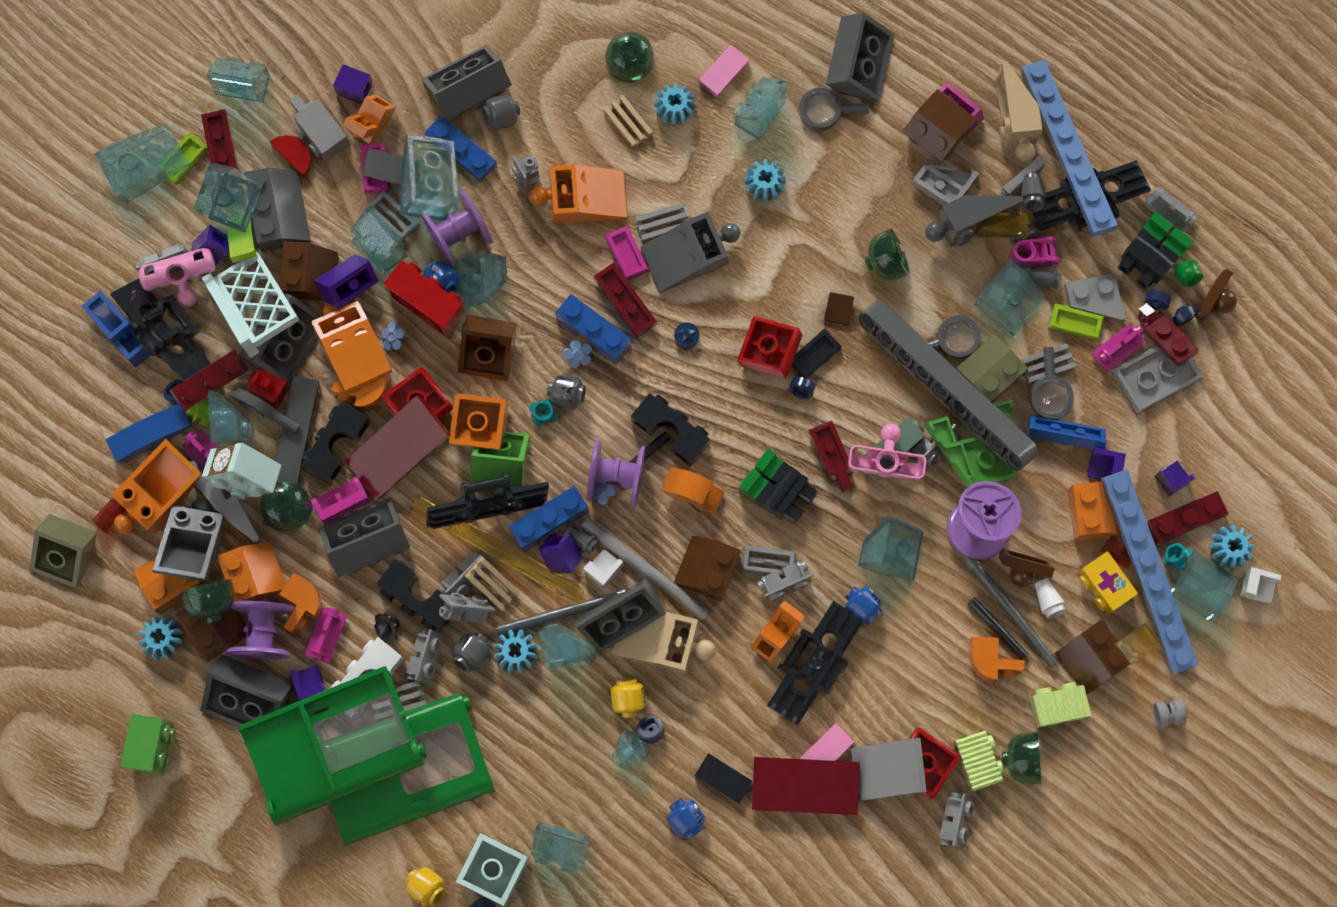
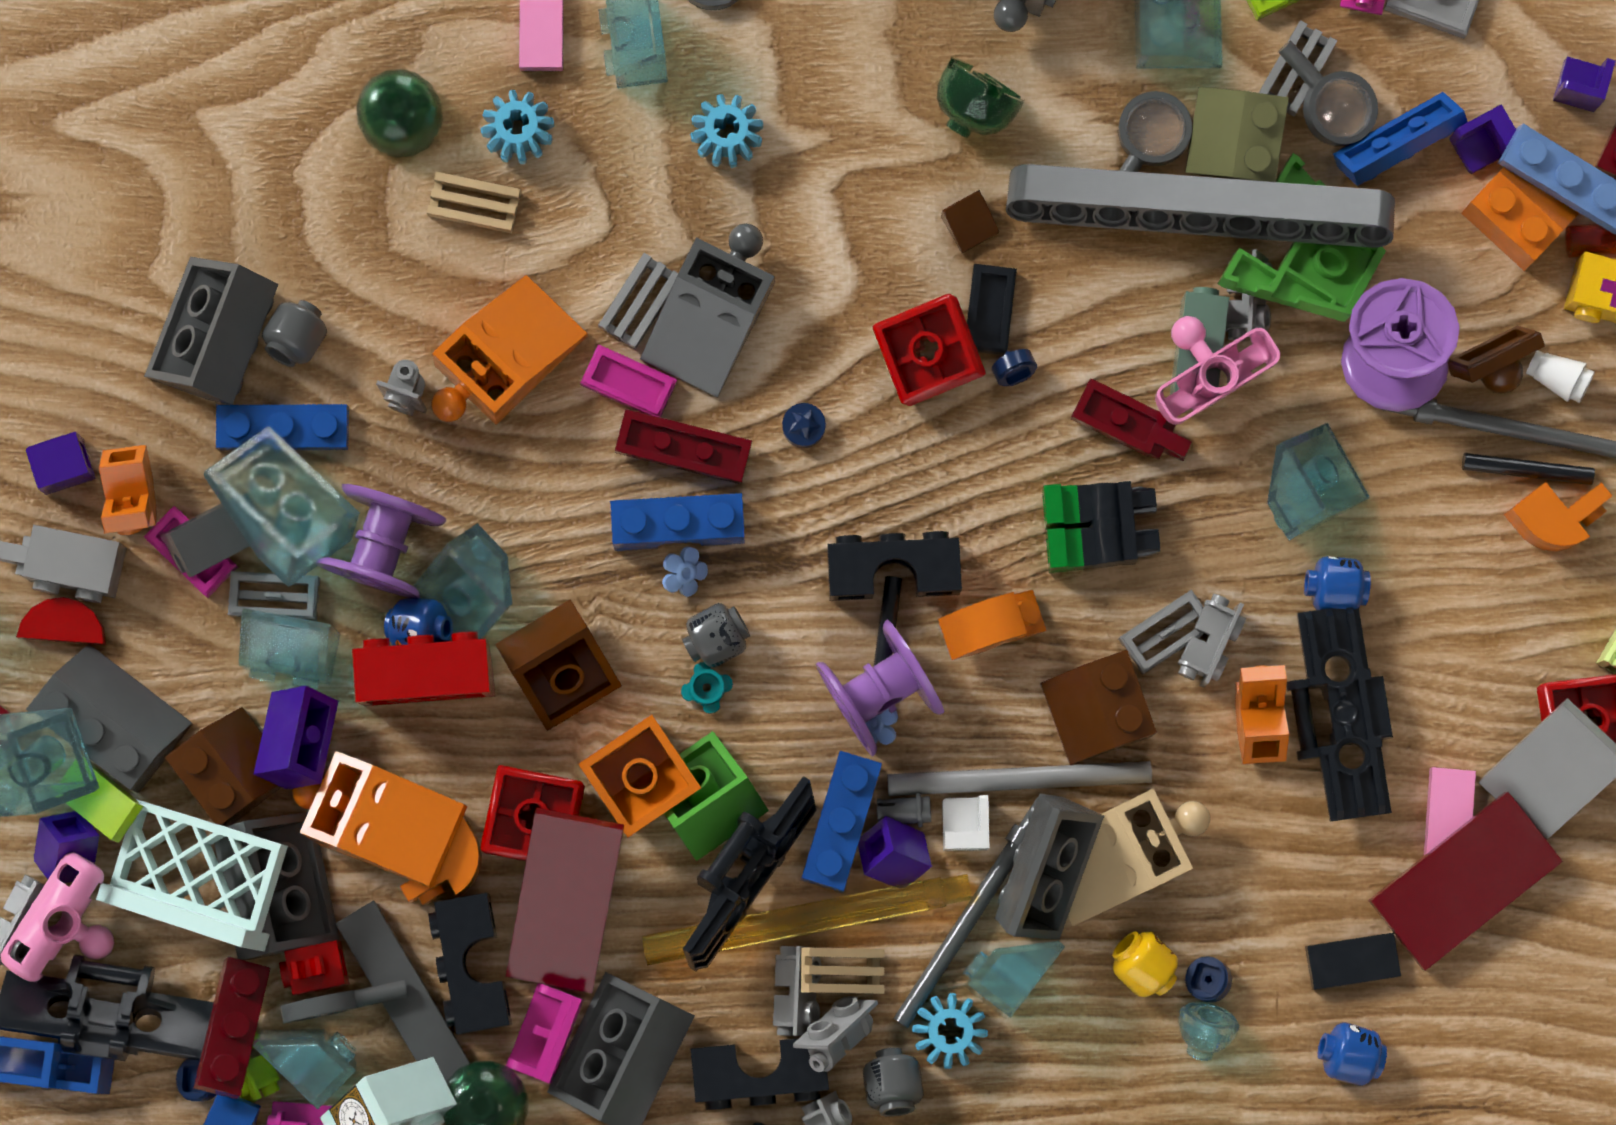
camera: 45 degrees left, 5 degrees up
(393, 336) = (420, 757): light blue plant -> none

